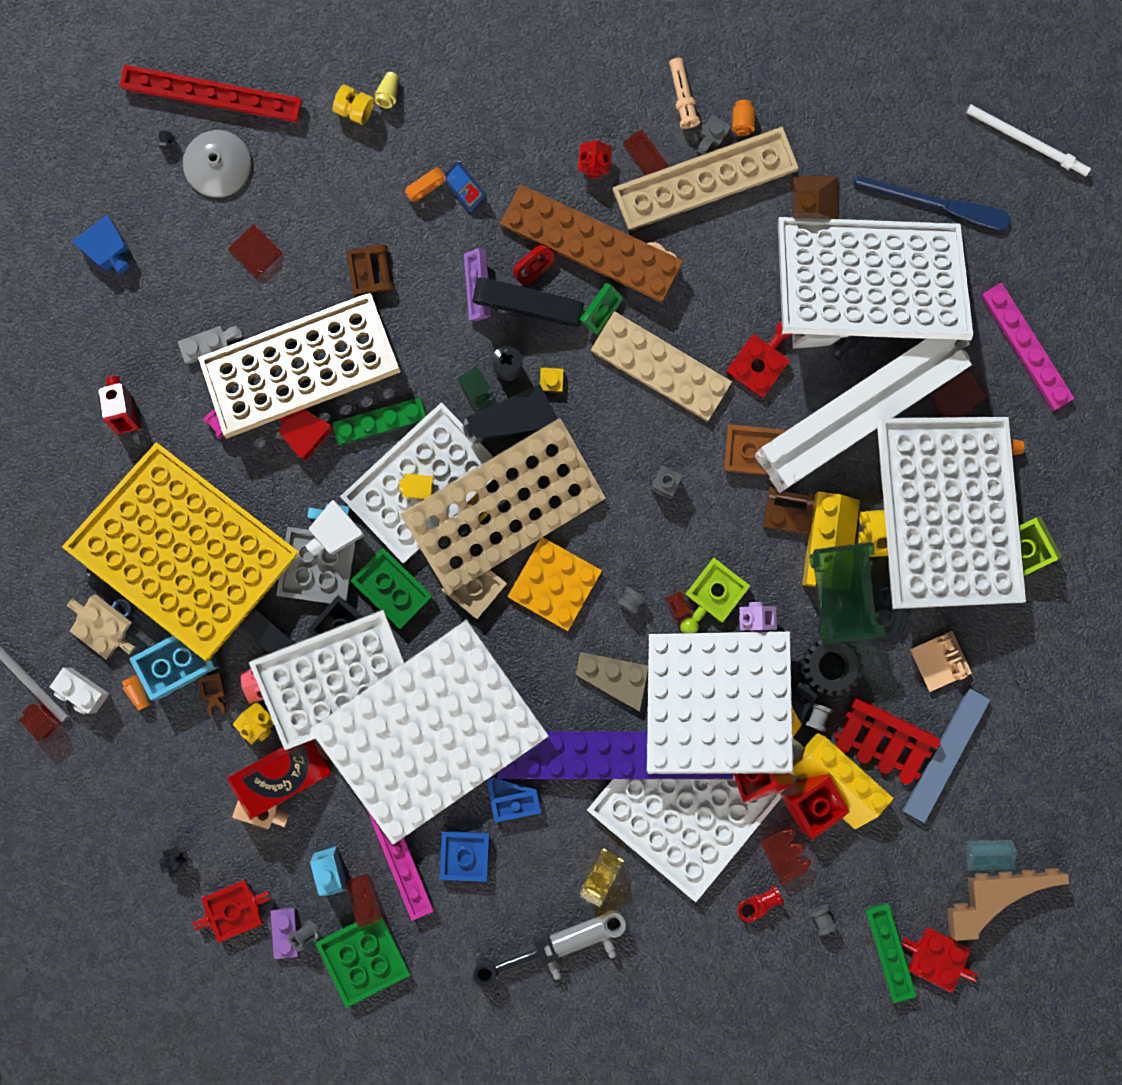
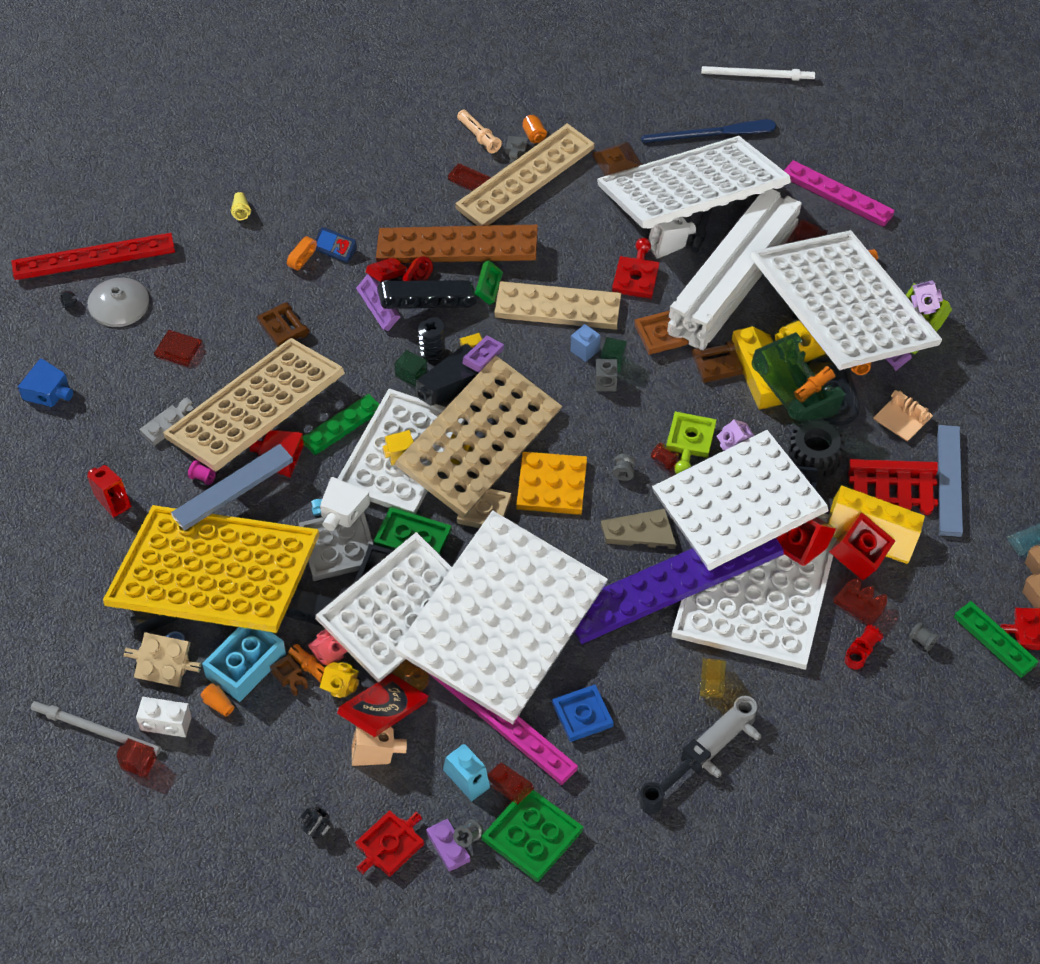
camera: 20 degrees left, 30 degrees down
(234, 683) = (307, 662): none -> orange pin
(235, 463) = (231, 487): none -> sand blue tile
(350, 103) = (216, 221): yellow wheel -> none
(501, 247) = (386, 269): none -> red plate
(512, 800) = (602, 653): blue wing -> none
(548, 411) = (483, 353): none -> medium lavender plate
(594, 158) = (431, 189): red brick -> none
(664, 432) = (585, 343): none -> medium blue brick
(685, 459) = (614, 349): none -> clear green brick
(819, 717) = (828, 489): light grey bush -> none
(863, 603) = (814, 384): none -> orange pin
(1036, 548) = (924, 290): none -> lavender brick

